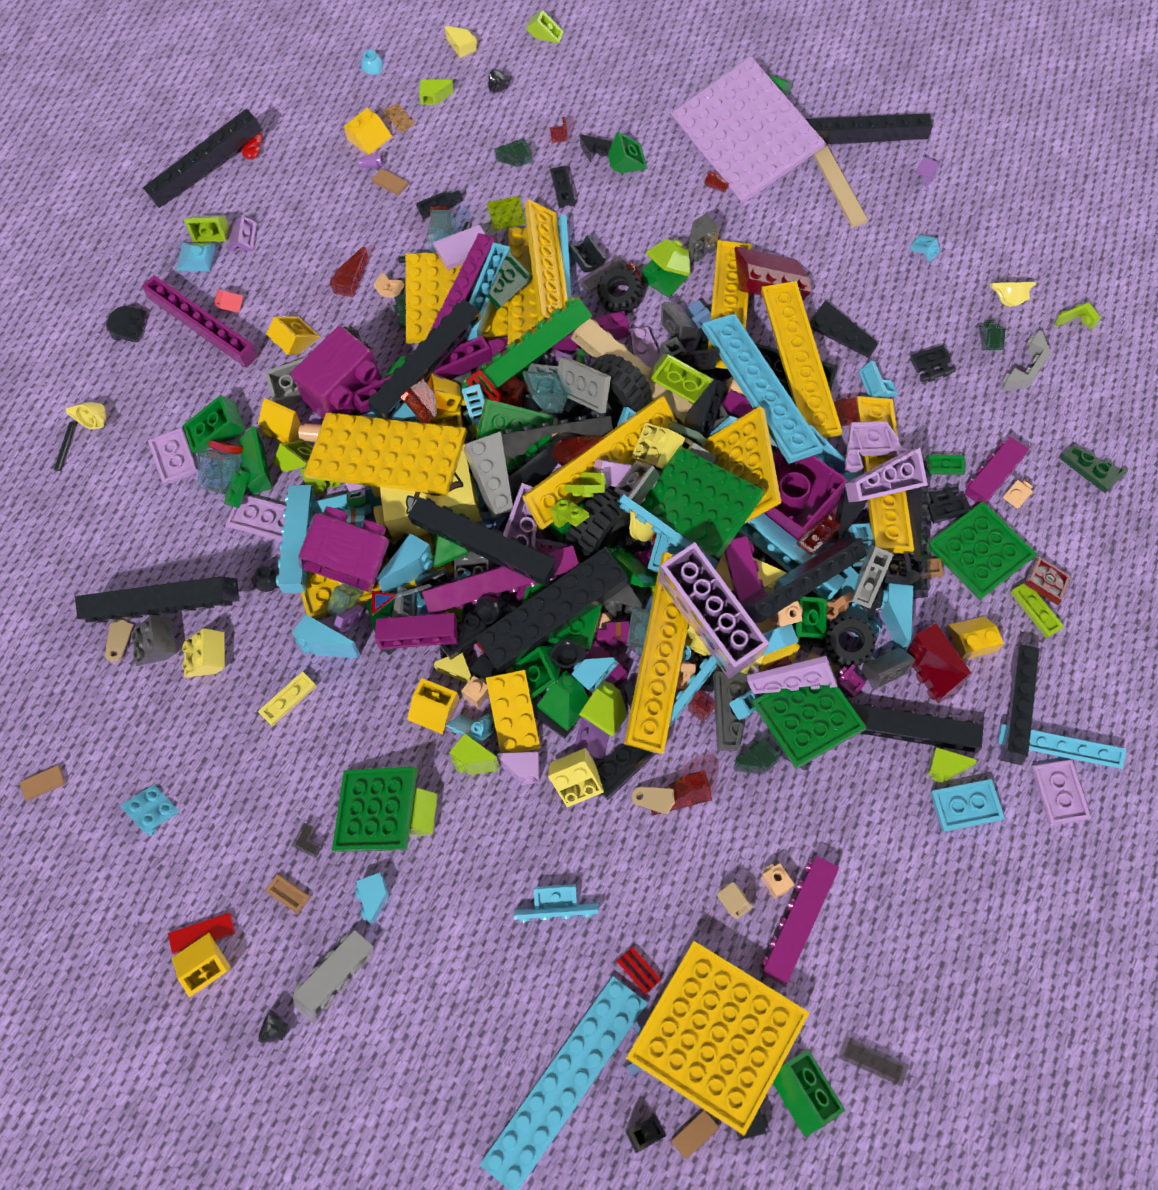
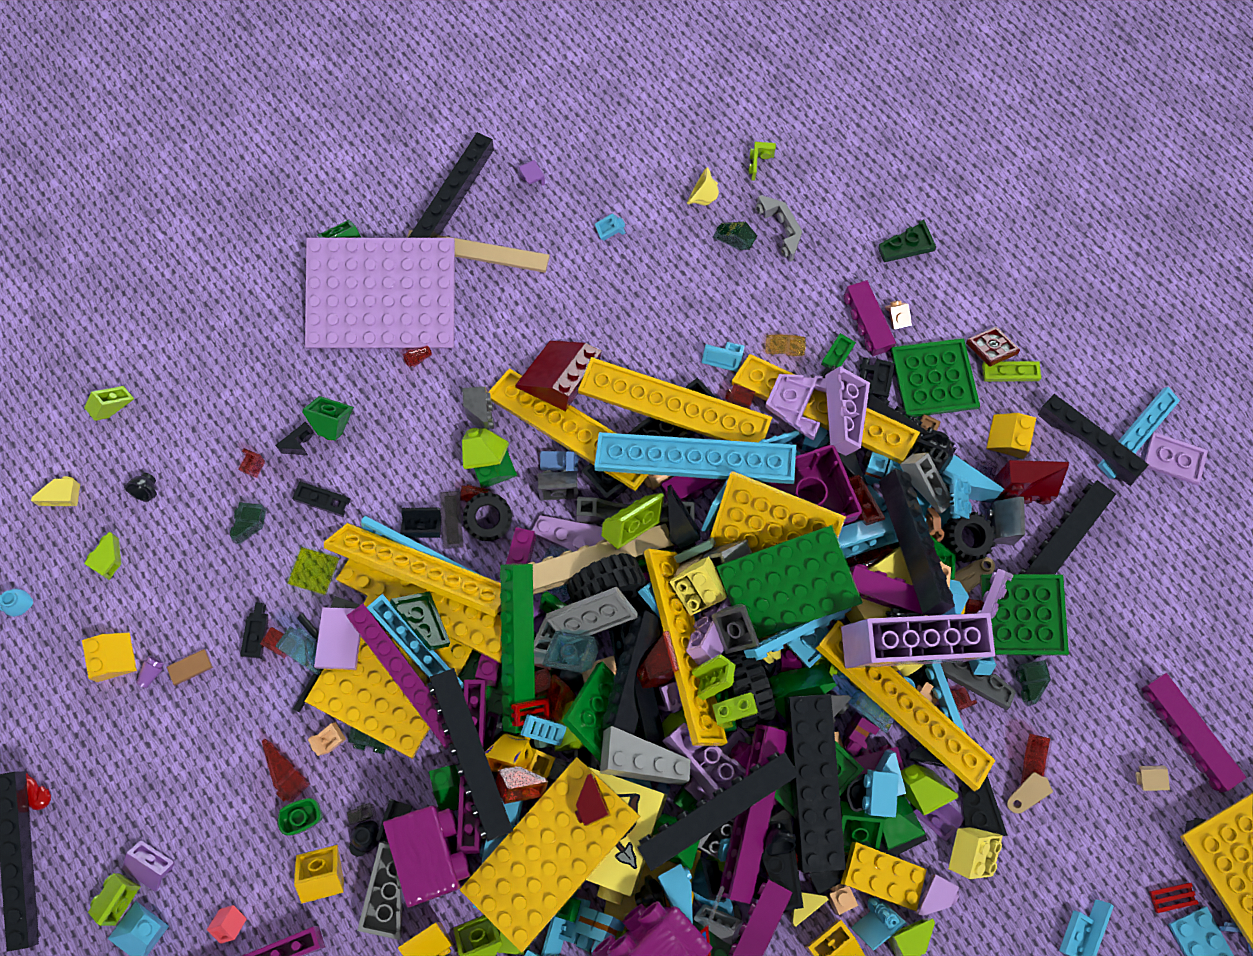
camera: 65 degrees left, 5 degrees up
(309, 432) = (455, 914): light nougat brick -> none
(325, 299) = (299, 816): none -> green piece
(398, 118) = (111, 612): clear yellow tile -> none
(435, 449) = (591, 803): none -> dark red slope
(573, 663) = (880, 793): none -> medium azure brick
(700, 359) = (625, 494): black tile -> none
(777, 880) = (1150, 731): light nougat brick -> none
(839, 328) = (648, 350): black wing -> none
(849, 681) = (1000, 559): magenta bracket -> none
(873, 602) = (961, 489): none -> medium azure hinge
(922, 421) = (785, 344): none -> clear yellow slope
(930, 359) = (727, 298): black plate -> none
(947, 765) = (1114, 529): lime slope -> none
(967, 805) = (1154, 537): medium azure plate -> none

